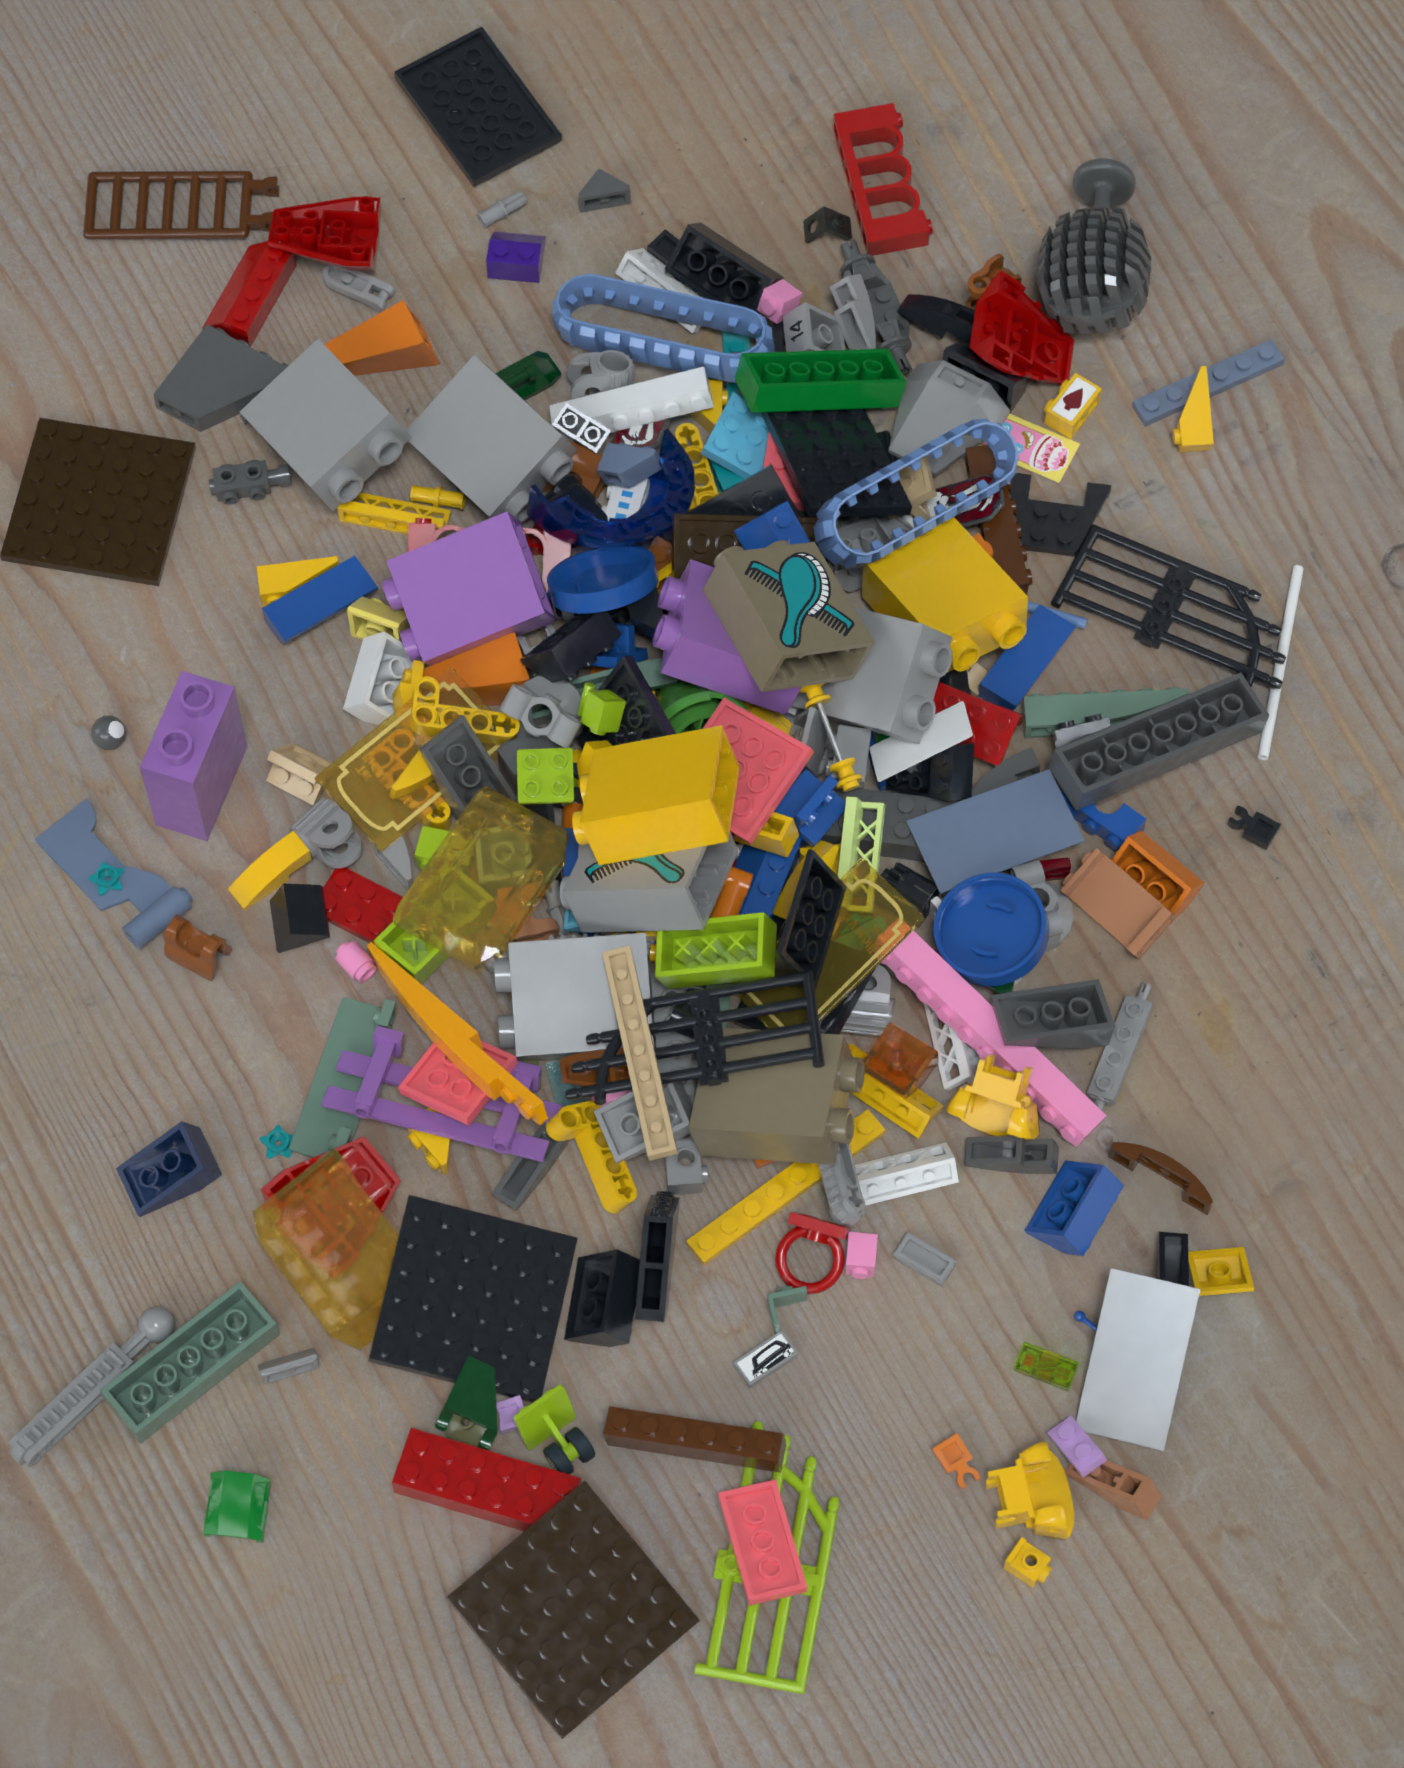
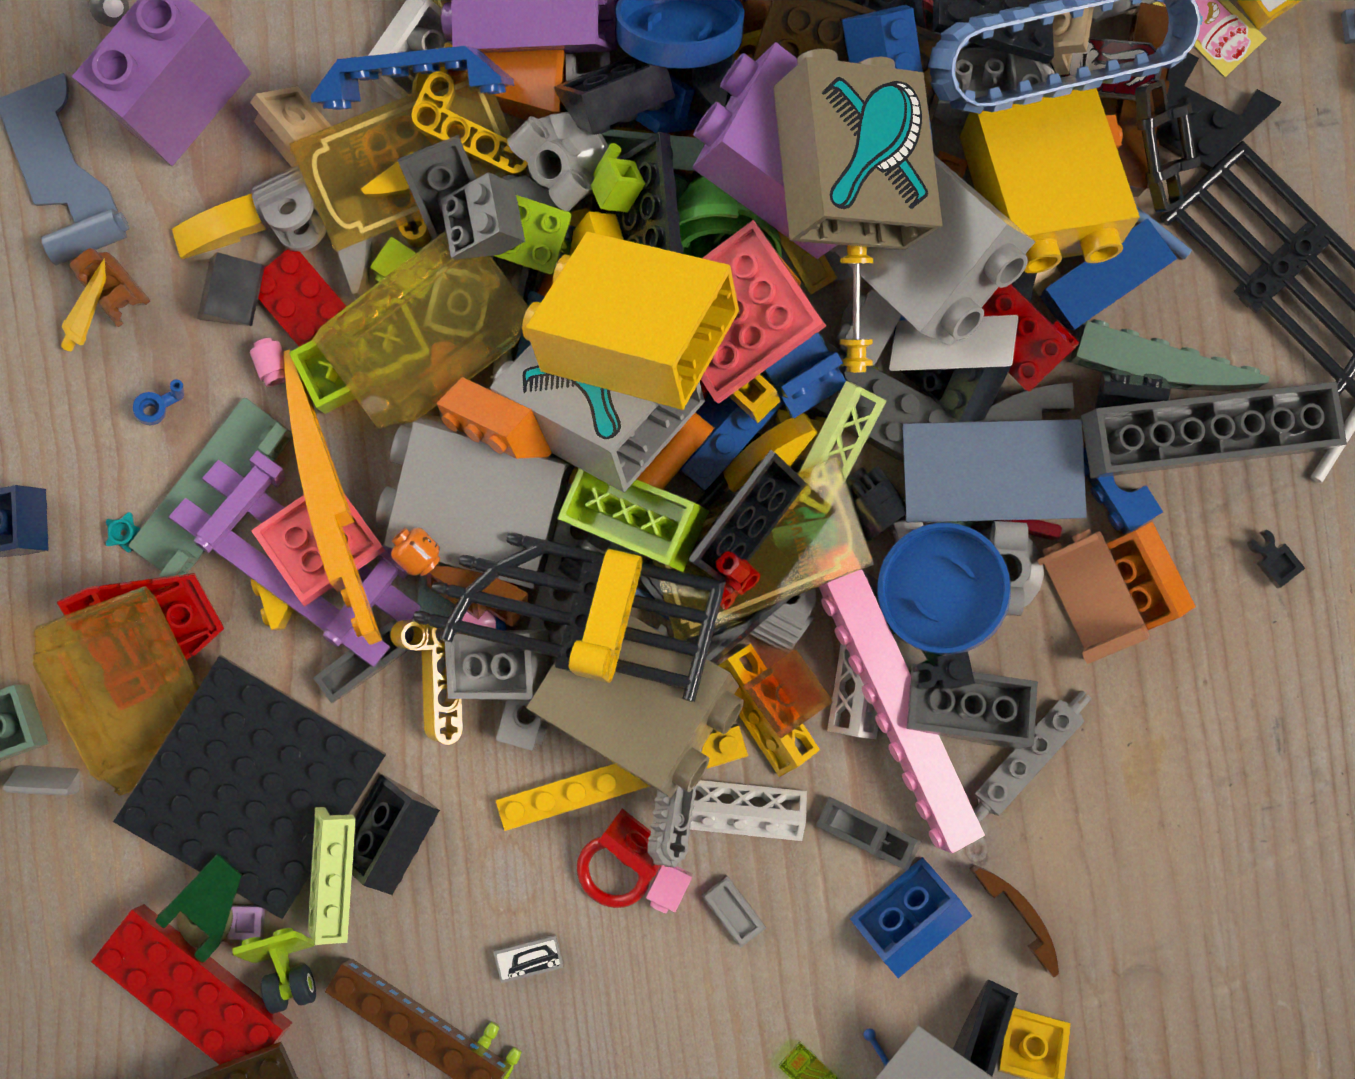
camera: 25 degrees right, 20 degrees up
(107, 871) = (43, 172): teal plate -> none
(181, 977) = (81, 315): none -> yellow bar
(271, 1027) = (158, 402): none -> blue plate
(465, 668) = (342, 86): none -> blue slope
(502, 773) = (482, 218): none -> dark grey slope
(547, 1045) = (415, 551): none -> orange head
(572, 1342) = (331, 877): none -> yellowish green fence
(573, 916) = (493, 420): none -> orange slope
(639, 1053) = (503, 608): tan plate -> none
(657, 1256) = (452, 816): black slope -> none
(730, 1038) = (608, 617): none -> yellow beam
(782, 1297) = (570, 901): sand green bracket -> none
(811, 731) = (832, 292): light grey slope -> none
(823, 970) = (739, 579): none -> red bar
(997, 1102) = (876, 780): yellow piece -> none
(1007, 531) = (1168, 171): none -> black bar
(1020, 989) = (949, 671): none -> black plate

